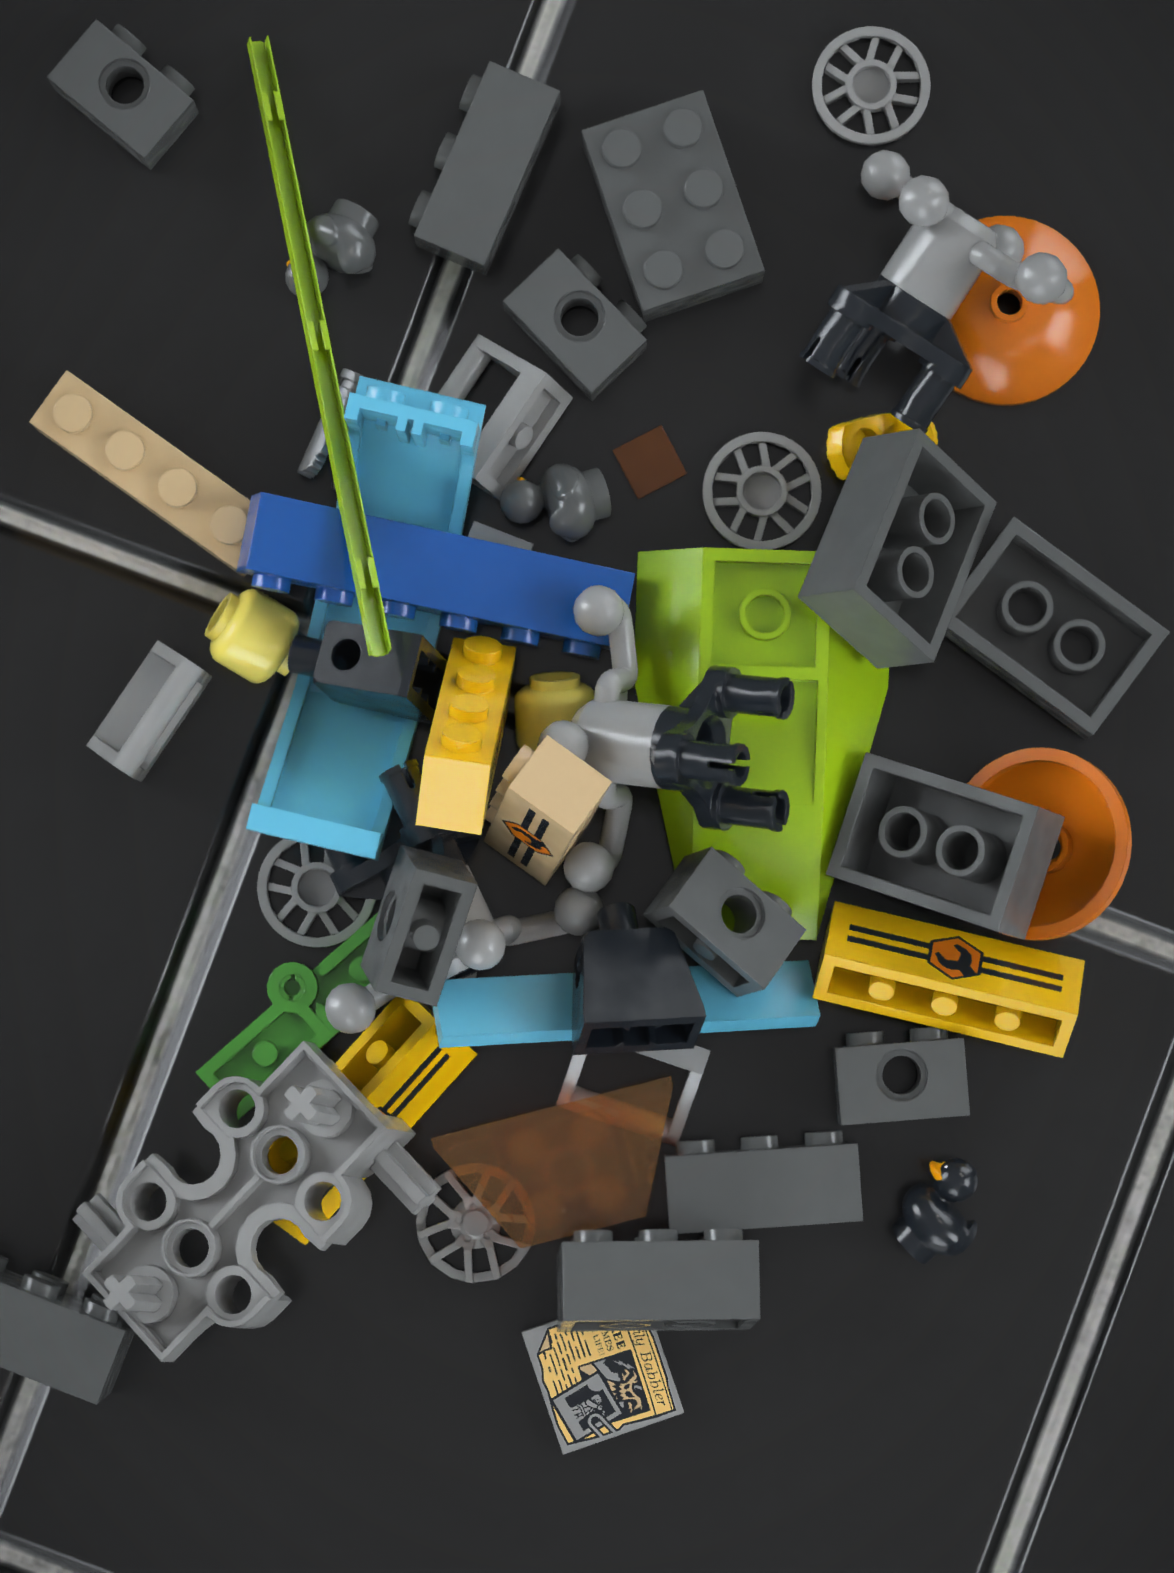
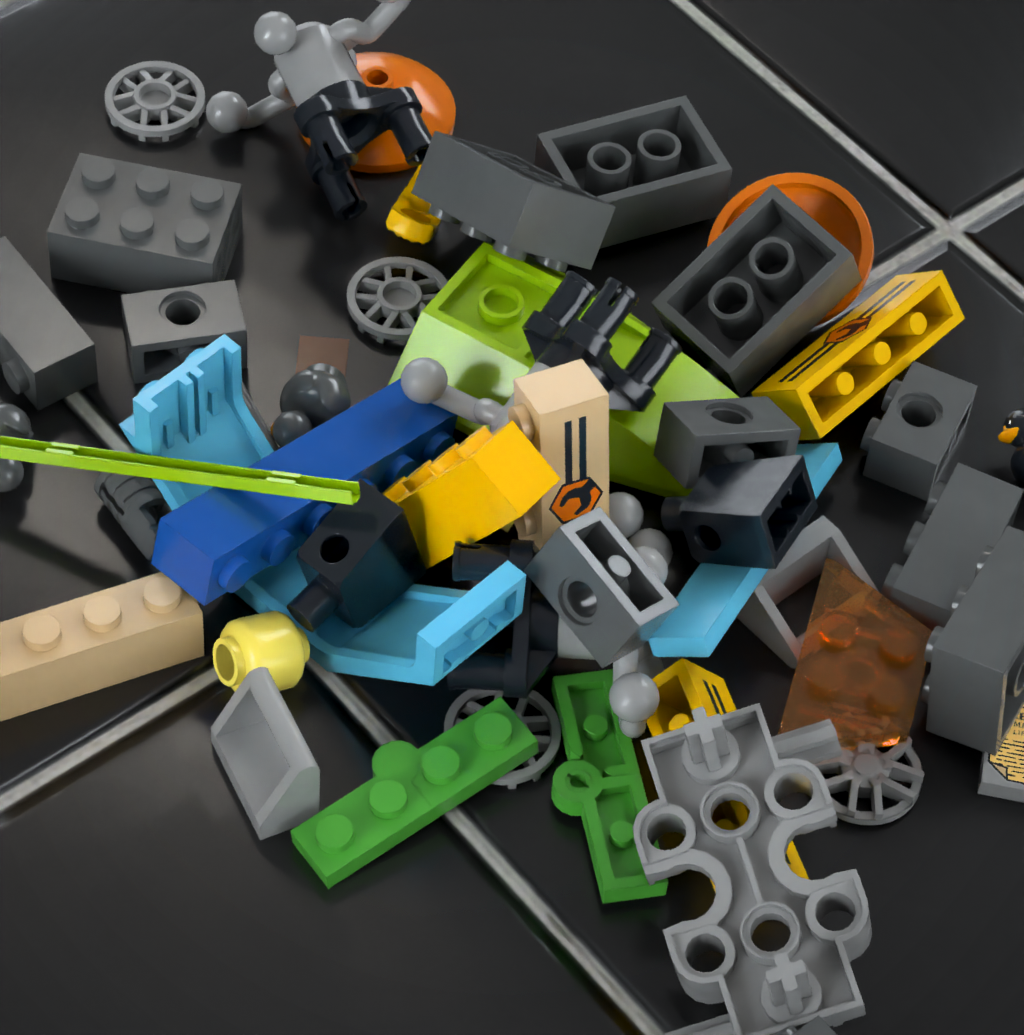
camera: 70 degrees left, 35 degrees down
(203, 851) = (413, 790): none -> bright green hinge

